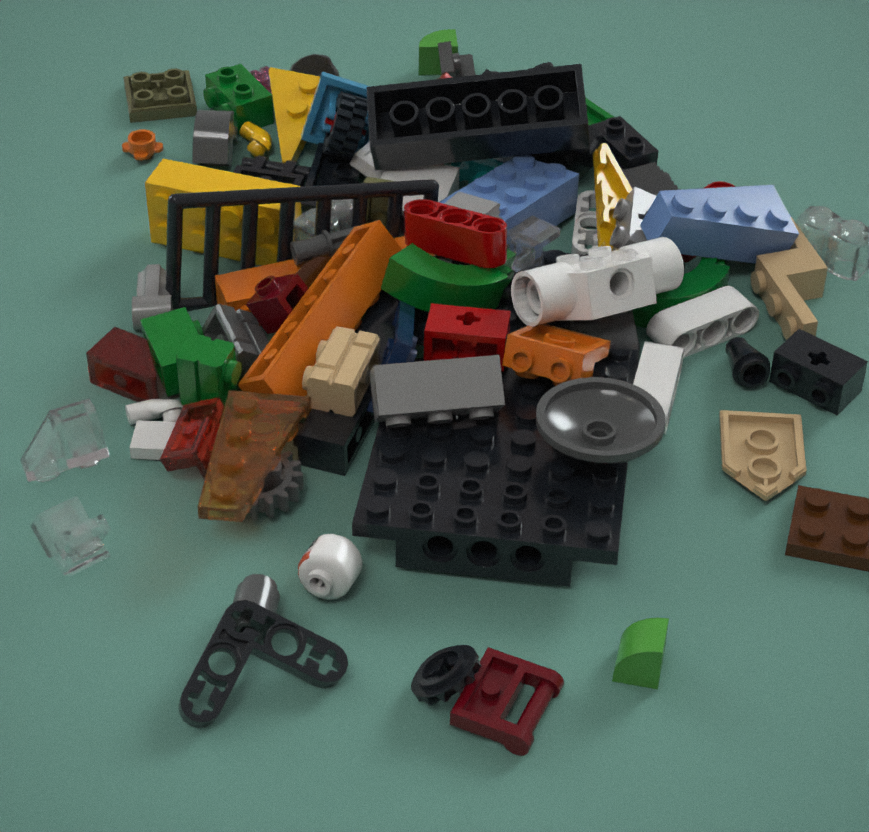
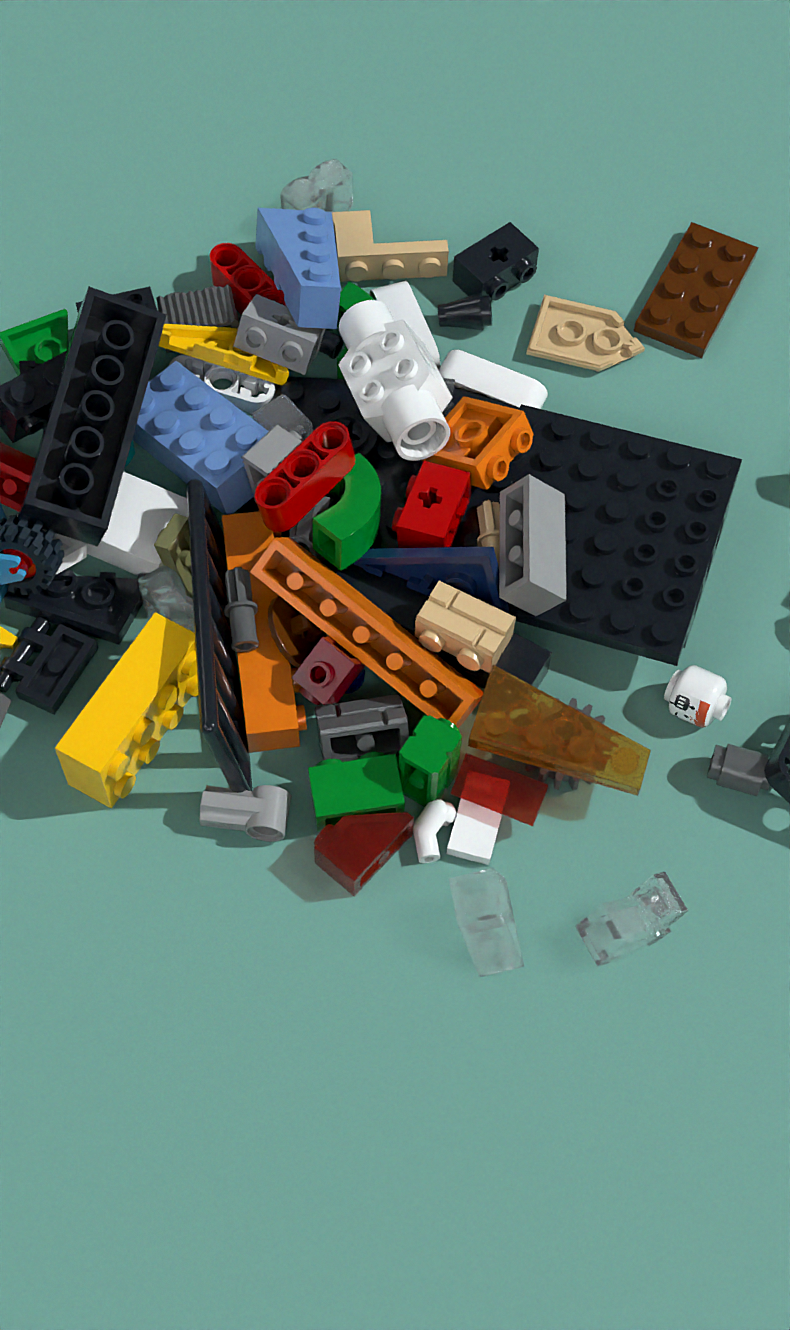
camera: 80 degrees left, 20 degrees up
(600, 420) = (611, 408): dark grey dish -> none

